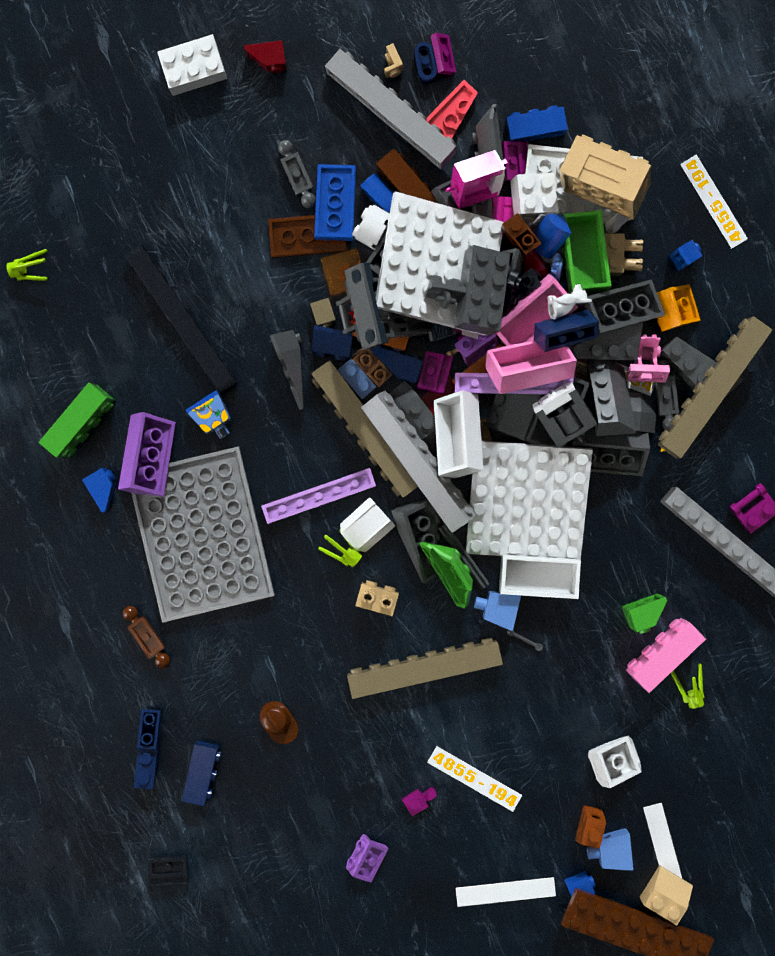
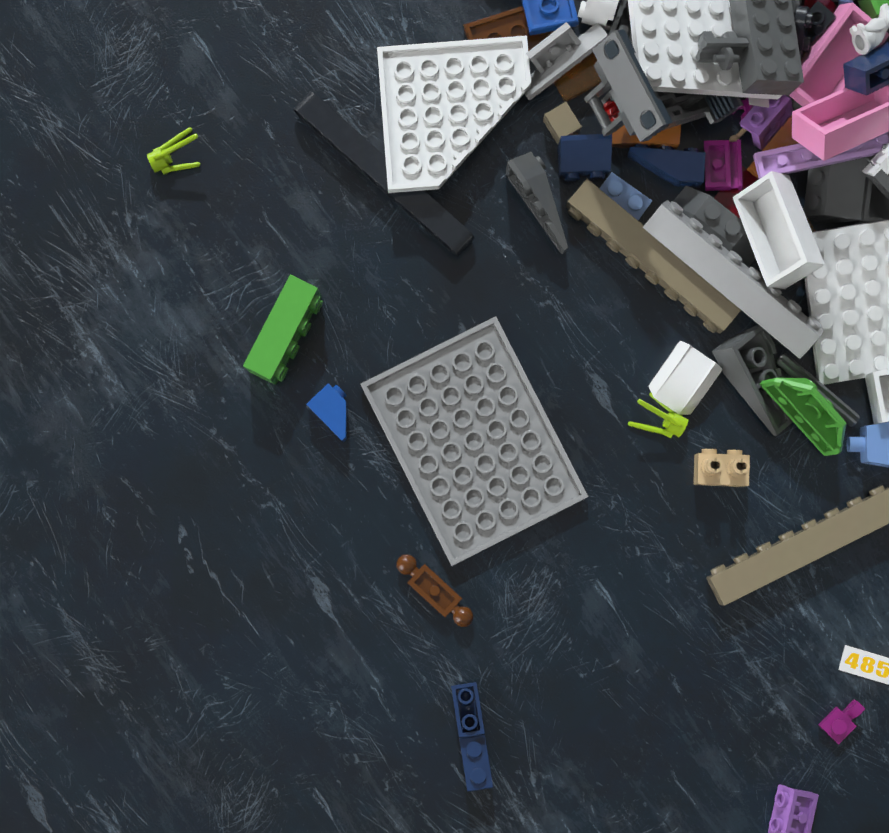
camera: 20 degrees left, 5 degrees down
(147, 455) = (382, 353): medium lavender slope -> none
(201, 773) = (550, 753): dark blue brick -> none
(211, 414) = (450, 284): torso -> none
(236, 277) = (444, 103): none -> white plate
(278, 722) = (632, 663): reddish brown piece -> none
(318, 495) = (613, 355): lavender plate -> none
(330, 261) = (559, 54): none -> light grey bracket
(372, 366) = (640, 177): medium nougat slope -> none

